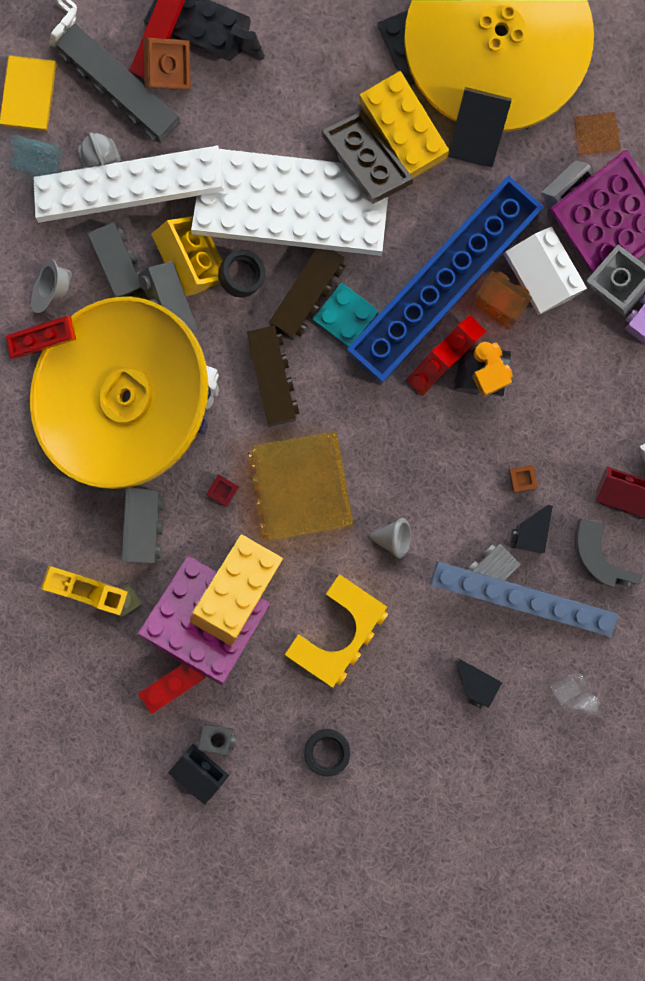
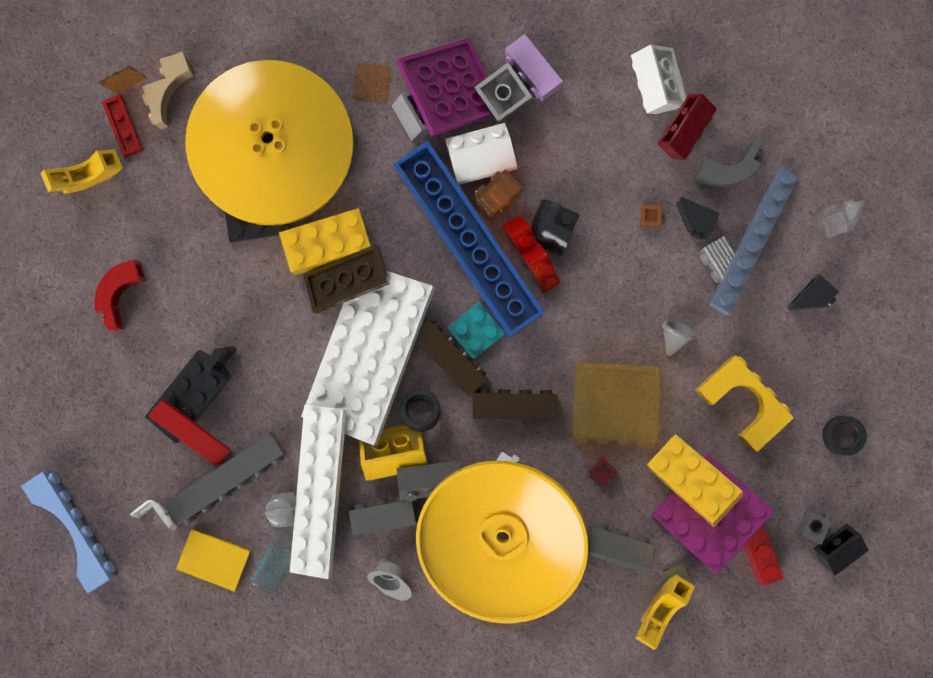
camera: 70 degrees left, 0 degrees up
(40, 337) = (433, 598): red tile -> none
(167, 64) = (220, 432): dark orange tile -> none
(479, 127) = (344, 177): black tile -> none
(495, 374) = (564, 216): light orange brick -> none

